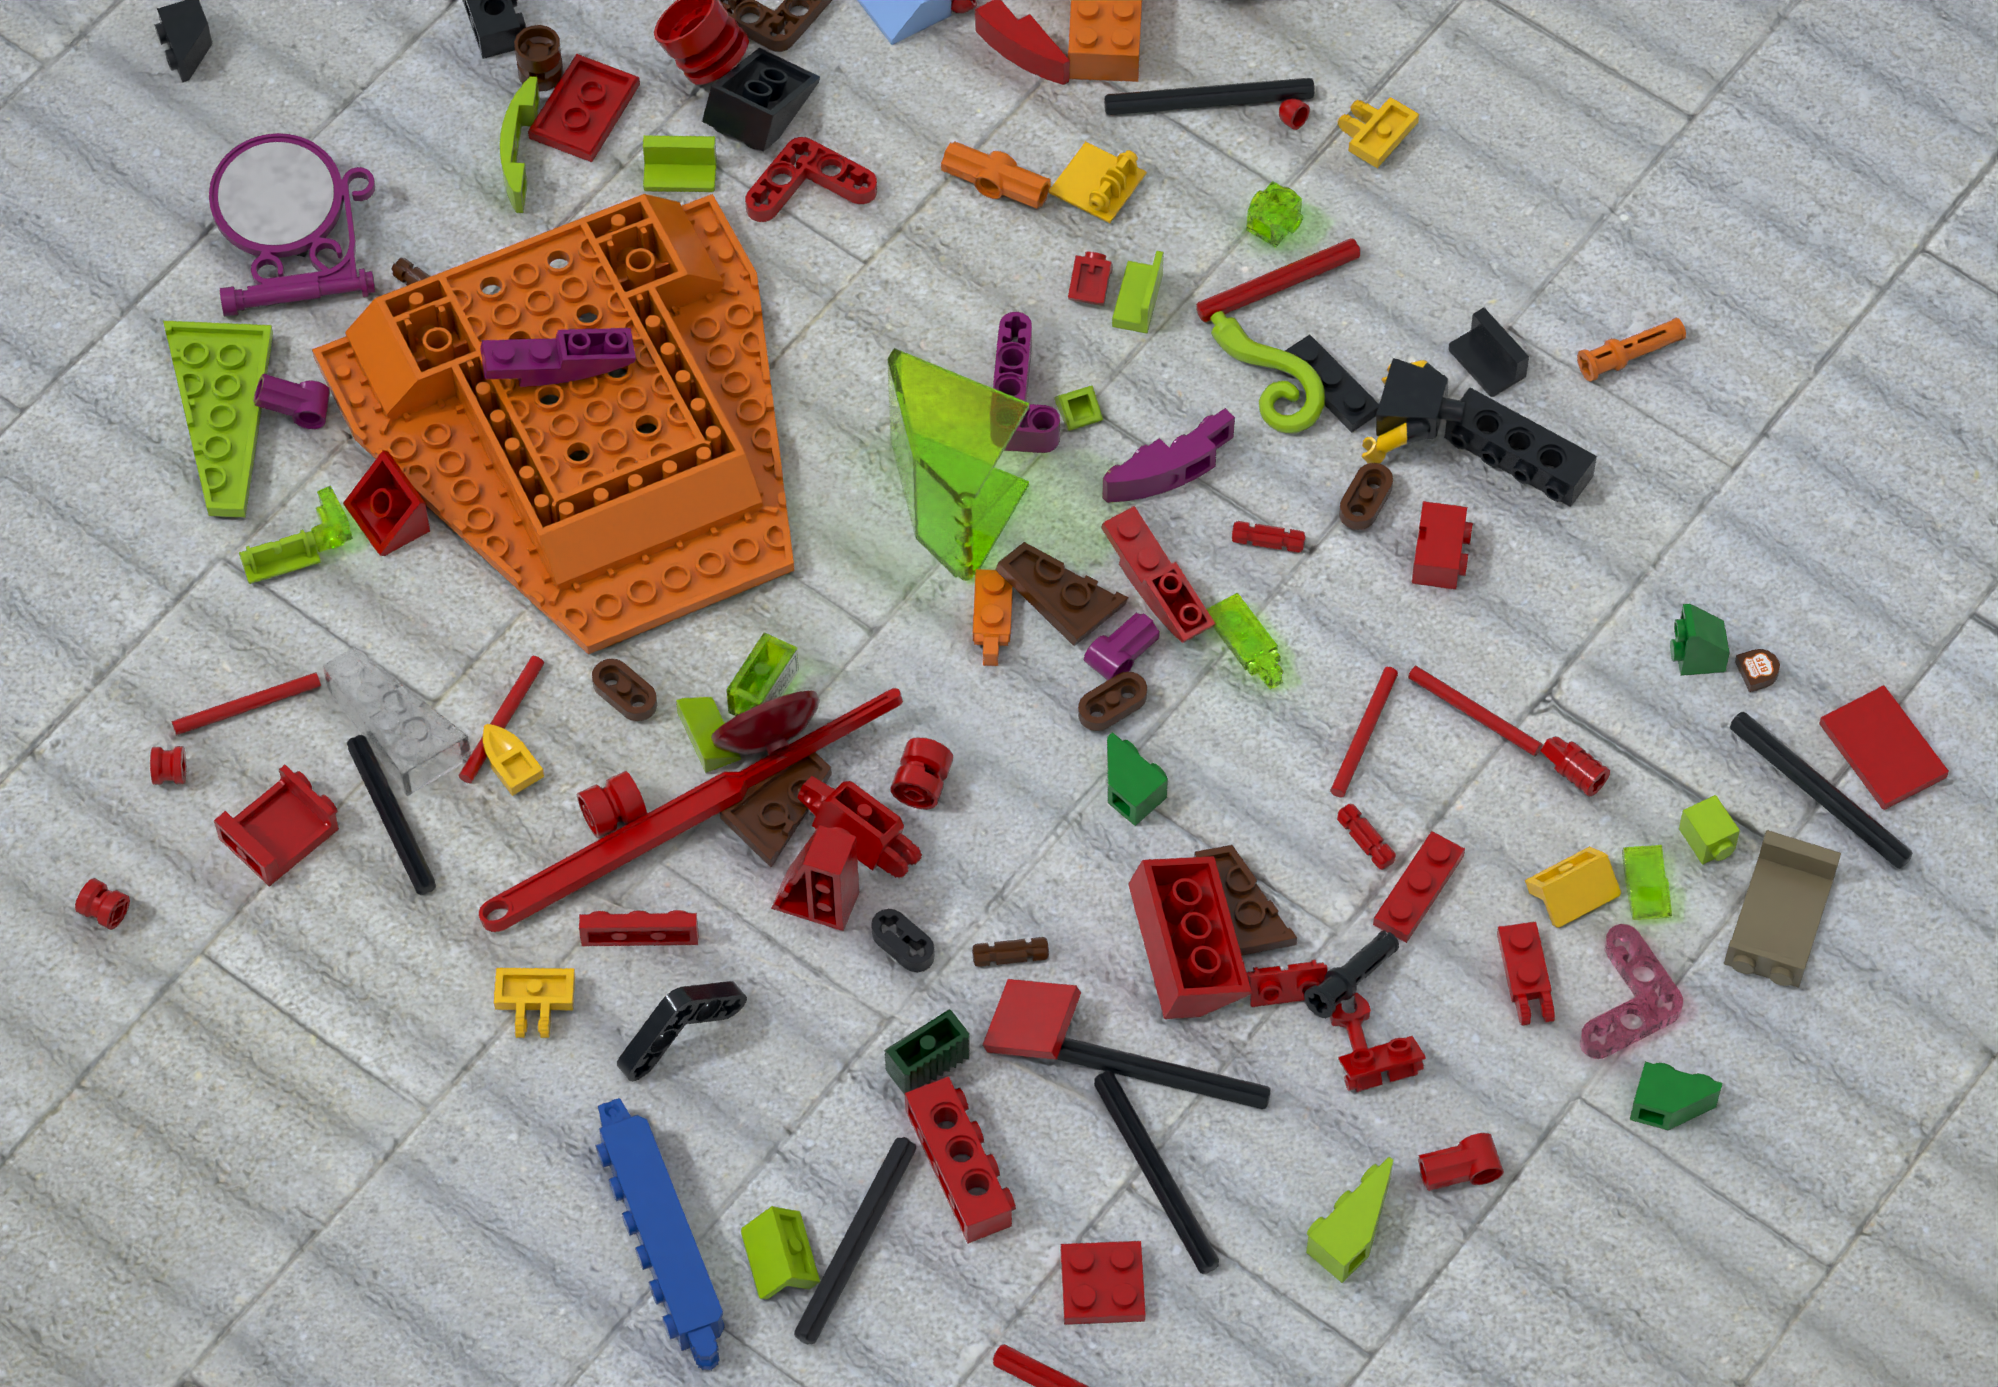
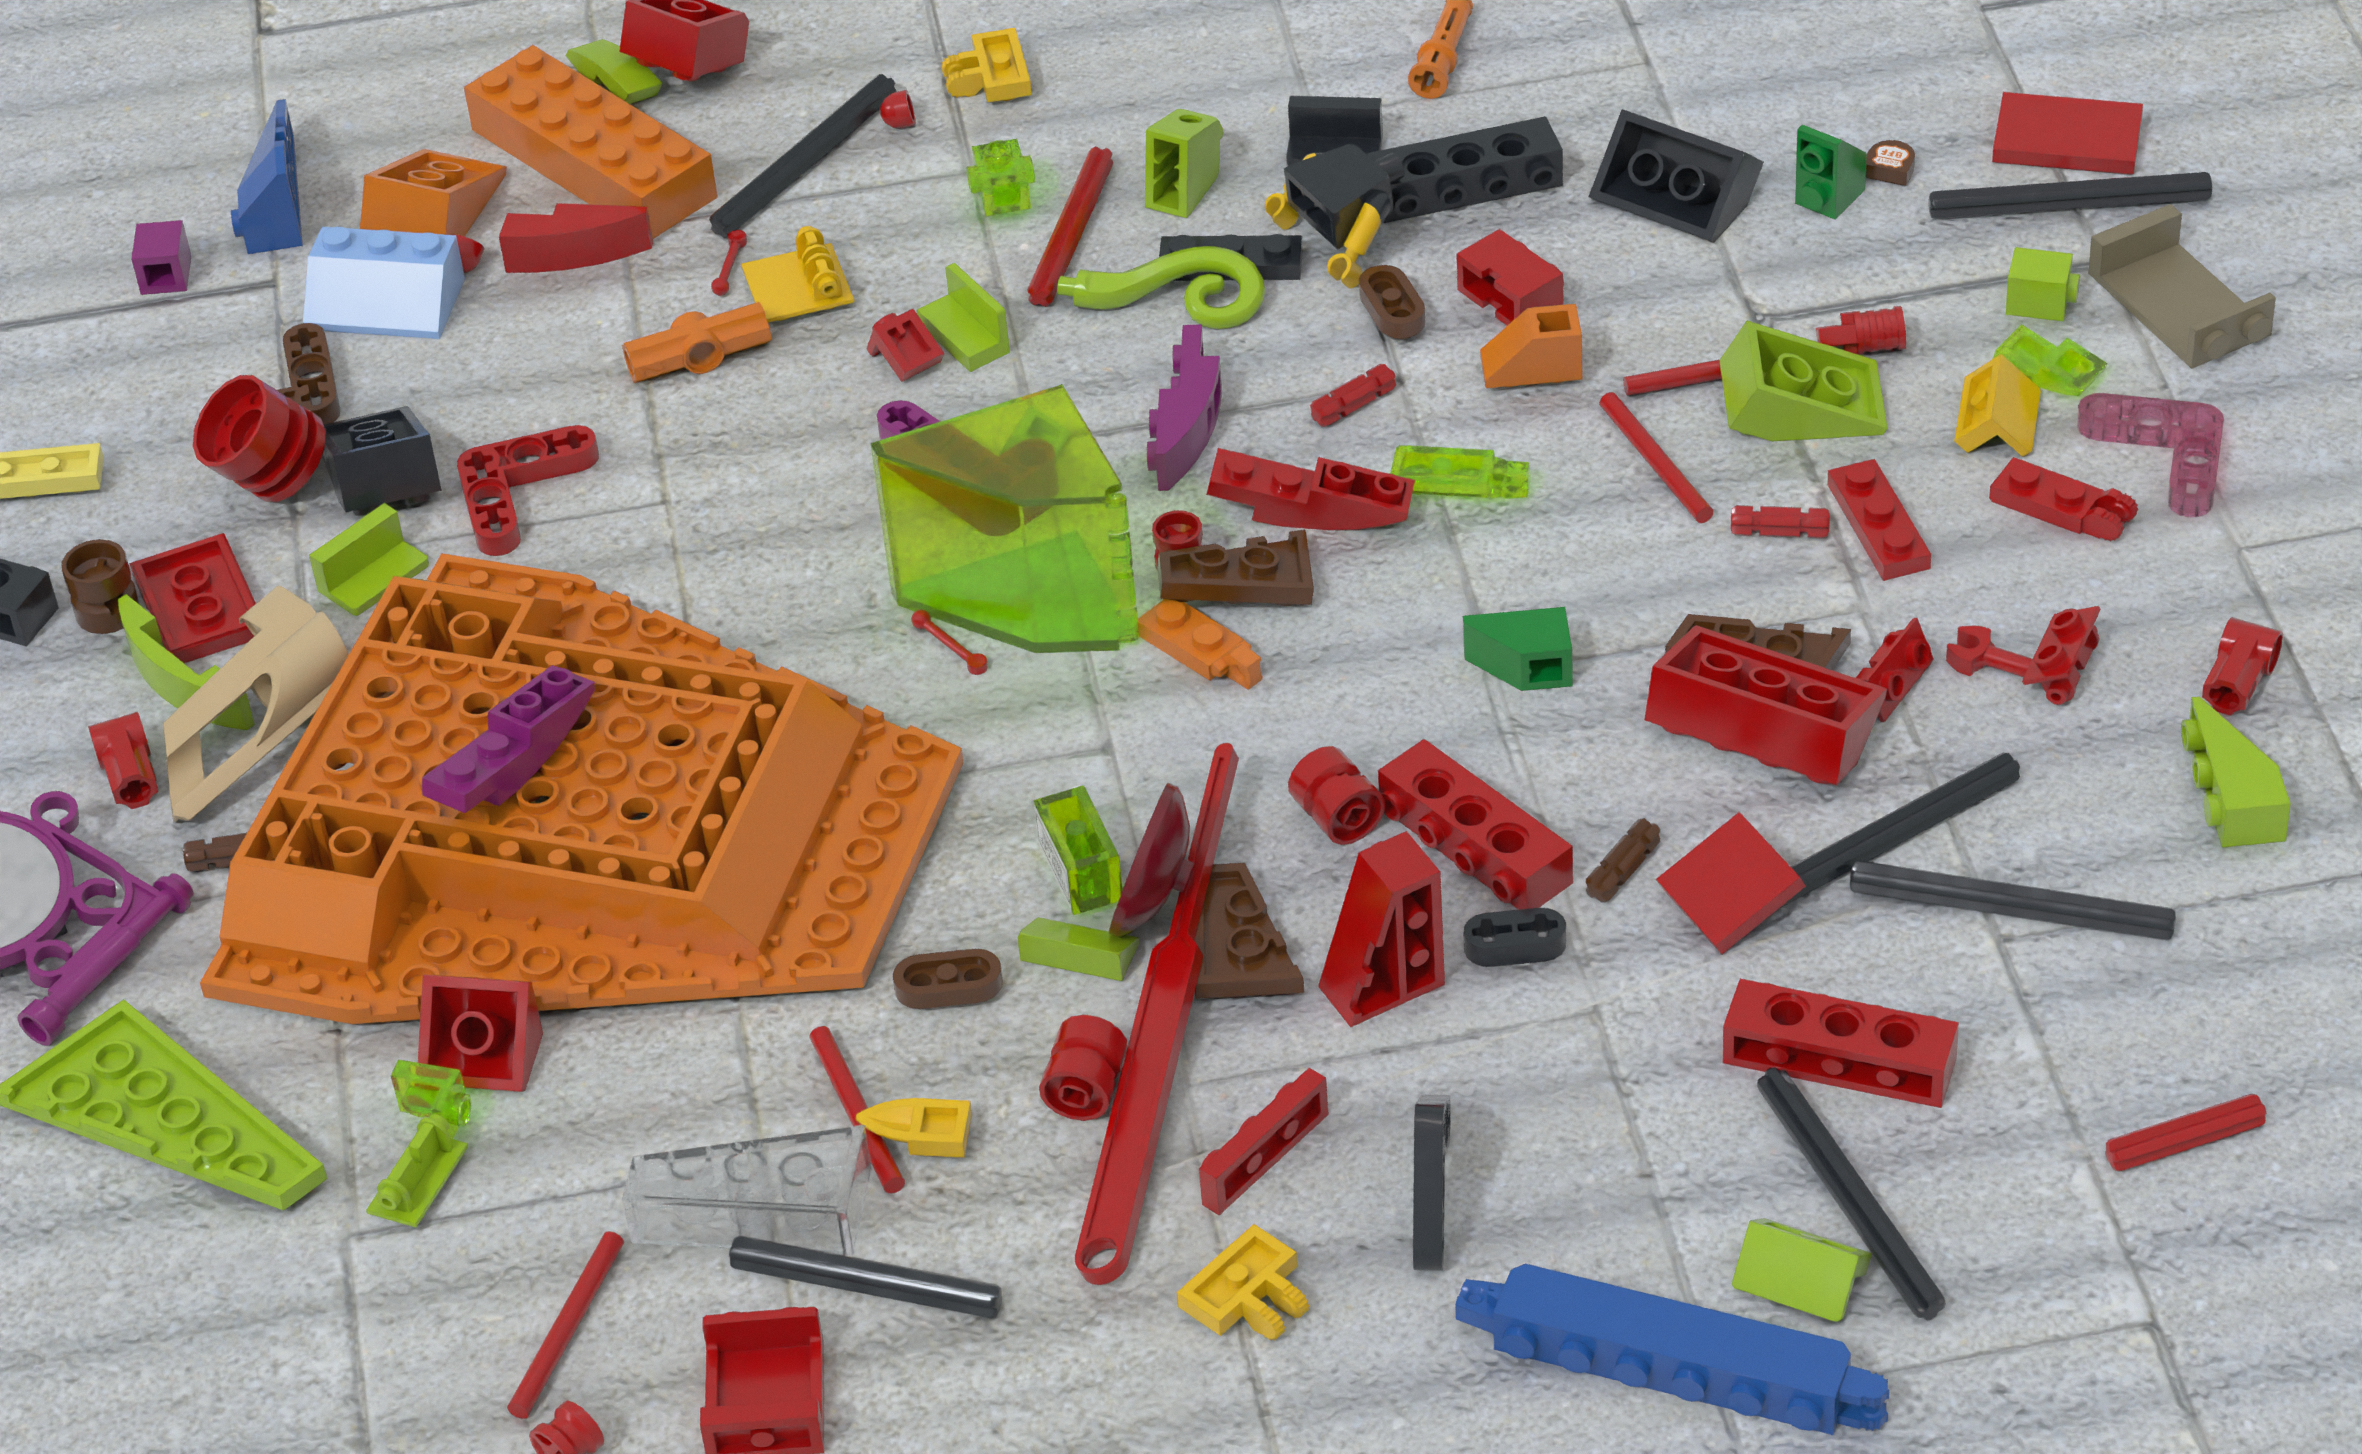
camera: 45 degrees left, 15 degrees down
(302, 401) = (249, 1031): magenta piece -> none
(439, 171) = (124, 756): none -> red piece
(550, 196) = (289, 671): none -> tan panel
(873, 824) = (1314, 874): red hinge -> none
(878, 514) = (975, 662): none -> red hinge
(928, 1052) = (1688, 983): dark green brick -> none
(962, 913) = (1475, 827): none -> red brick
(1054, 539) = (1176, 531): none -> red wheel
(1102, 1282) = (2105, 1021): red plate -> none
(1109, 122) = (736, 240): none -> red hinge
(1109, 701) = (1413, 609): reddish brown plate -> none
(1119, 650) = (1359, 567): magenta piece -> none
(1342, 982) = (1943, 620): black pin -> none
(1379, 293) = (1181, 161): none -> lime torso
(1386, 604) = (1535, 349): none -> orange slope
(1489, 768) = (1799, 388): none -> lime slope
(1622, 563) = (1674, 177): none -> black slope
(1672, 1097) = (2311, 476): green slope -> none

